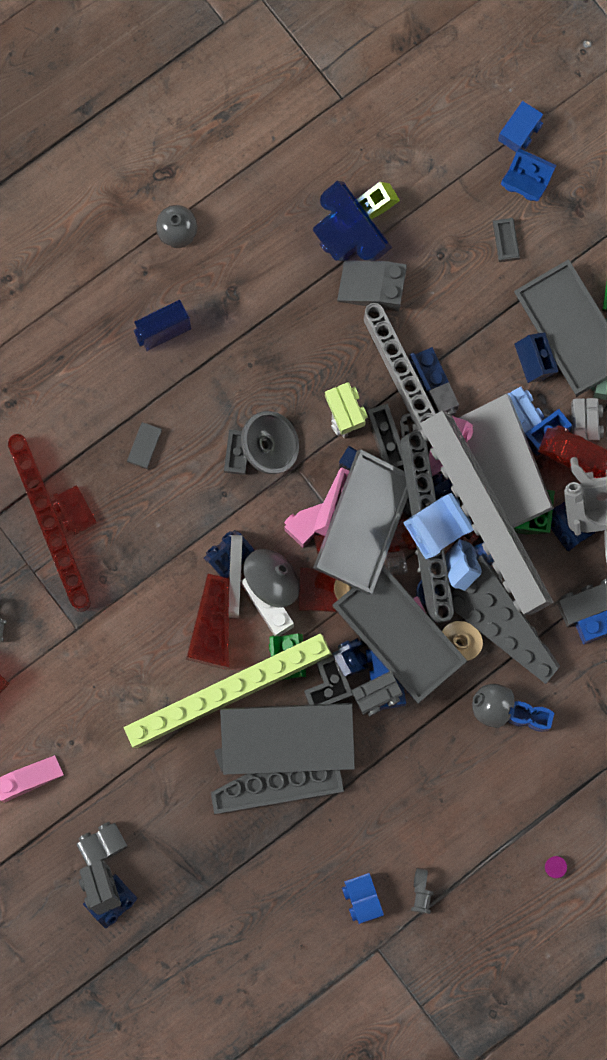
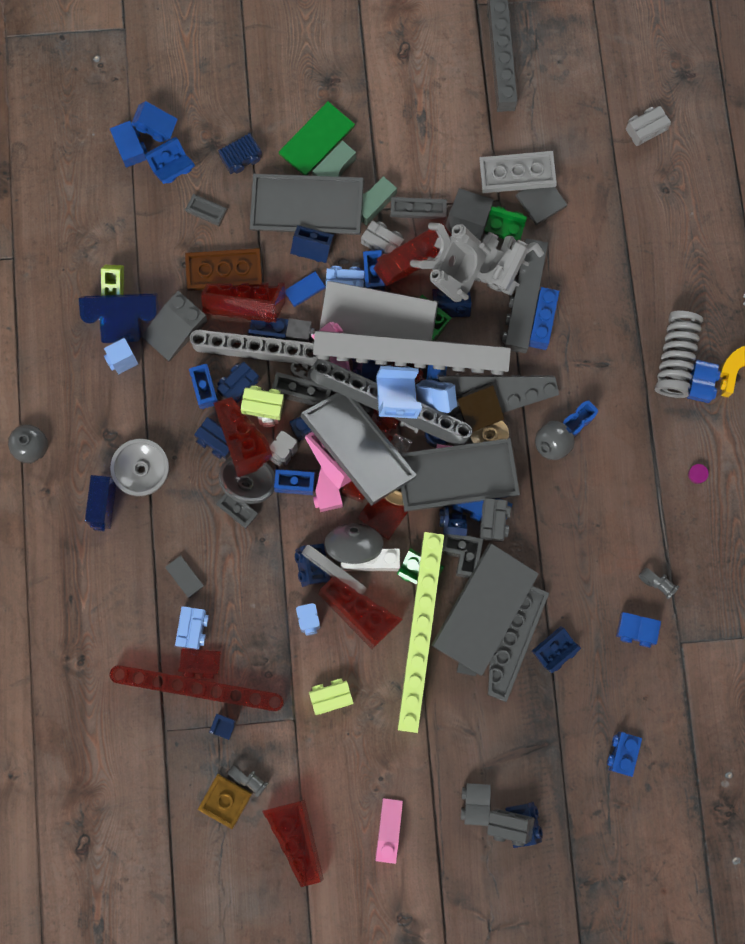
camera: 65 degrees left, 0 degrees up
(29, 567) = (222, 726): none -> dark blue panel
(100, 482) = (191, 628): none -> light blue brick
(117, 648) = (330, 697): none -> yellowish green brick
(174, 581) = (308, 619): none -> light blue brick
(213, 326) = (130, 458): none -> light grey dish
(235, 957) = (624, 753): none -> blue bracket
(291, 391) = (212, 436): none -> dark blue brick
(293, 831) = (556, 650): none -> dark blue bracket
(295, 487) = (294, 482): none -> blue brick
(301, 415) = (245, 442): none -> clear red wedge
(310, 254) = (120, 356): none -> light blue brick
(318, 456) = (283, 449): none -> light grey brick
(331, 347) = (203, 386): none -> blue brick
(360, 376) = (235, 383): none -> dark blue brick
(438, 331) = (244, 301): none -> clear red wedge
(458, 293) = (223, 268): none -> reddish brown plate
(479, 615) = (480, 407): none -> dark brown tile
(489, 379) = (304, 289): none -> blue tile
(556, 136) = (154, 122): none -> blue brick
(581, 235) = (240, 154): none -> dark blue brick

